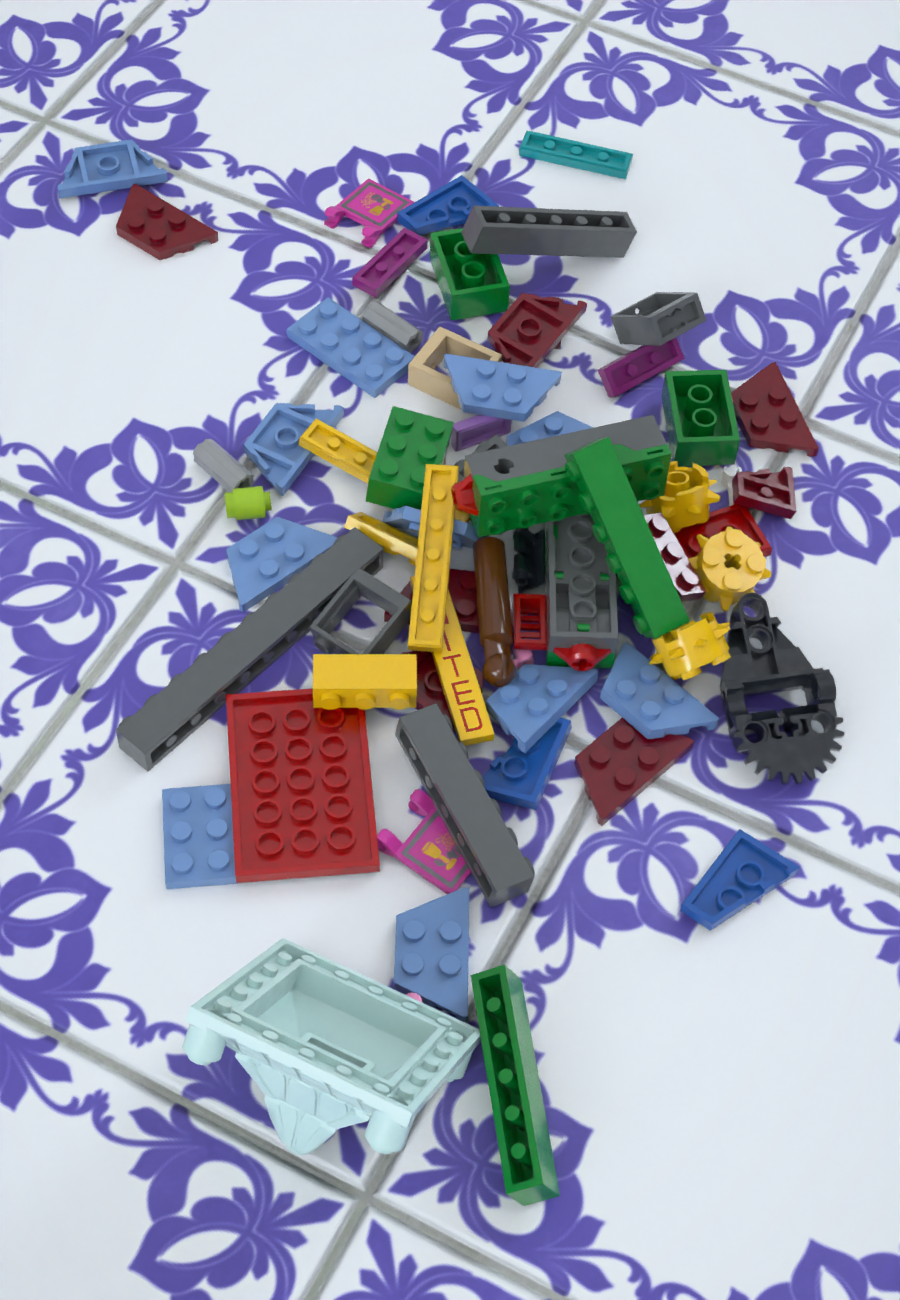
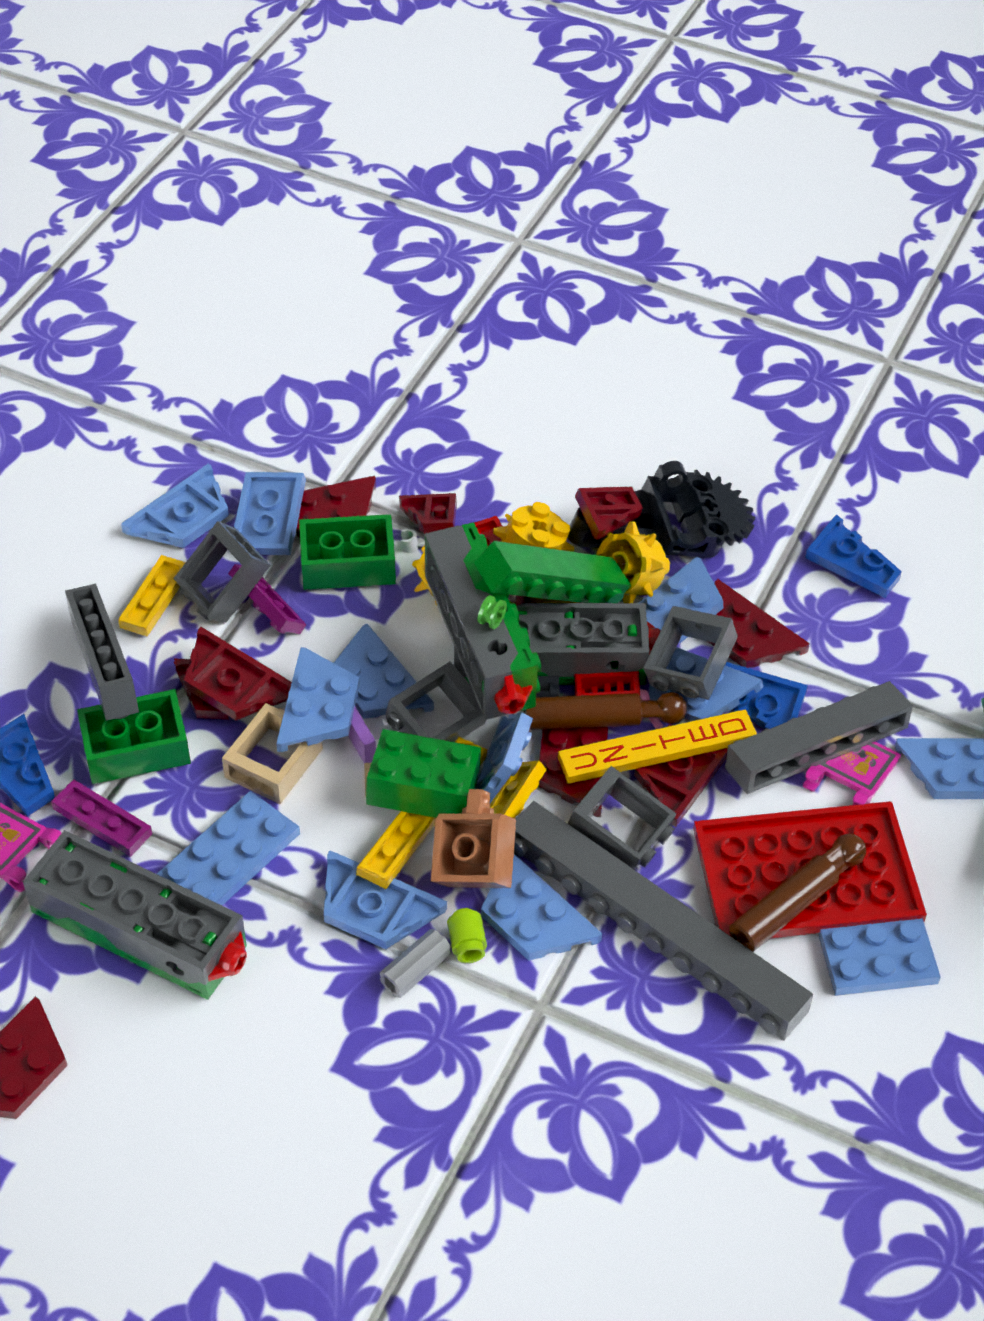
camera: 90 degrees left, 5 degrees down
(260, 753) = (797, 892): none -> reddish brown piece
(277, 277) = (137, 914): none -> dark grey piece
(324, 495) = (474, 846): none -> nougat hinge
(364, 681) = (704, 809): yellow brick -> none
(392, 326) = (204, 812): light grey axle -> none
(433, 559) = (562, 742): yellow tile -> none
(537, 453) = (492, 612): none -> bright green bush
(585, 665) = (694, 625): none -> dark grey window
(634, 282) = (152, 597): none -> yellow plate
(752, 358) = (270, 510): none -> medium blue plate
(755, 305) = (181, 512): none -> medium blue wing
(758, 619) = (608, 508): none -> dark red wing

